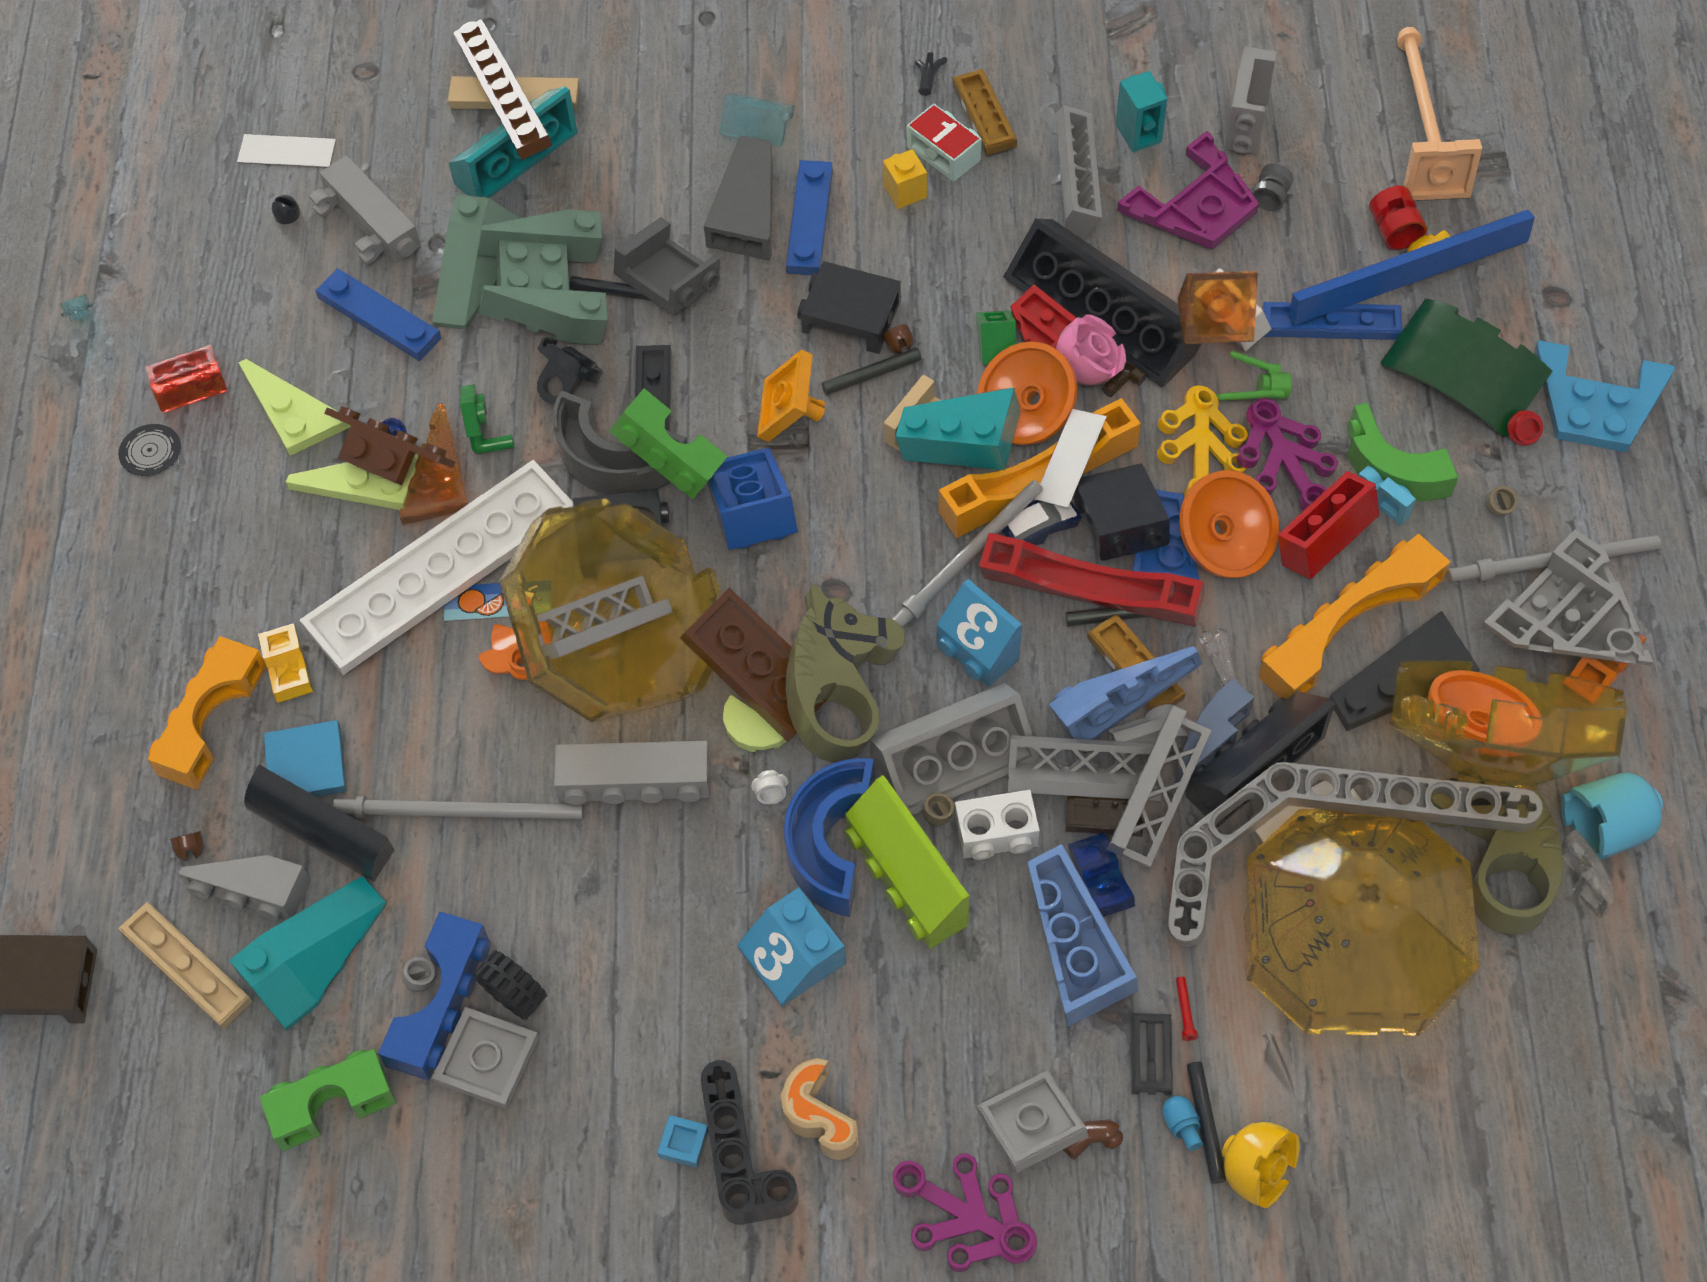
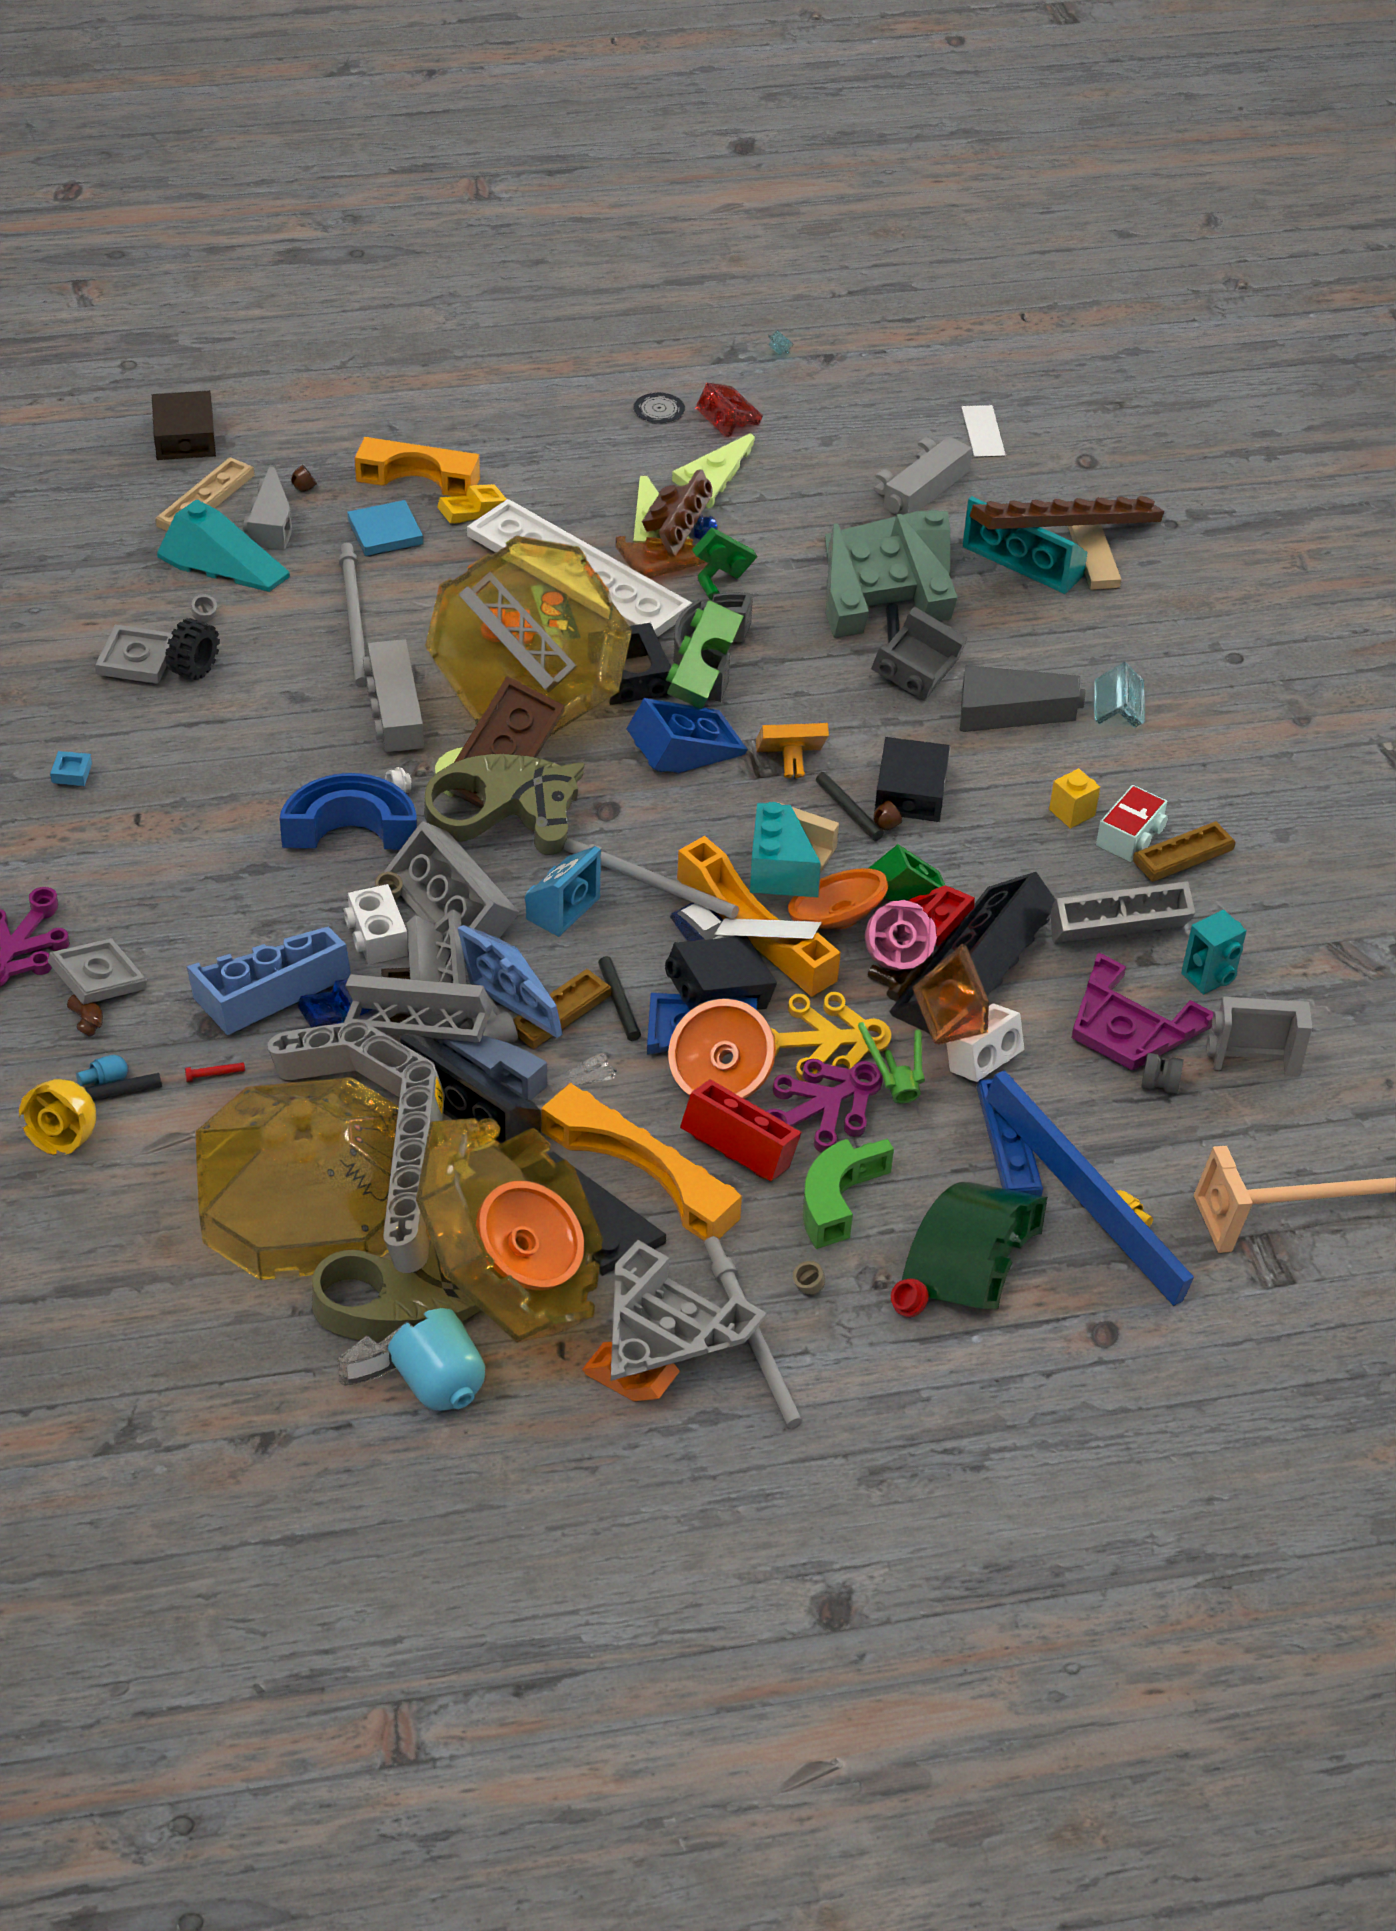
camera: 75 degrees right, 15 degrees down
(282, 212) = (915, 434): black hinge -> none
(294, 1106) = (106, 586): bright green arch -> none
(317, 823) = (326, 535): black brick -> none
(378, 314) = (823, 503): blue plate -> none
(418, 1040) = (148, 611): blue arch -> none
(567, 365) = (791, 605): black tile -> none
(654, 373) = (789, 671): black tile -> none
(735, 1141) = (65, 794): black beam -> none
(792, 947) = (248, 814): dark azure slope -> none
(809, 217) = (1015, 747): blue plate -> none
(814, 1118) = (96, 833): tan animal -> none
(907, 864) = (328, 869): lime slope -> none
(928, 72) = (1222, 809): black bar -> none
(1143, 593) = (627, 999): red arch -> none
(1151, 1085) = (168, 1055): black tile -> none
(1393, 498) = (790, 1186): medium azure plate -> none
(1397, 217) = (1153, 1174): red wheel -> none
(1595, 410) = (953, 1368): dark azure wing -> none

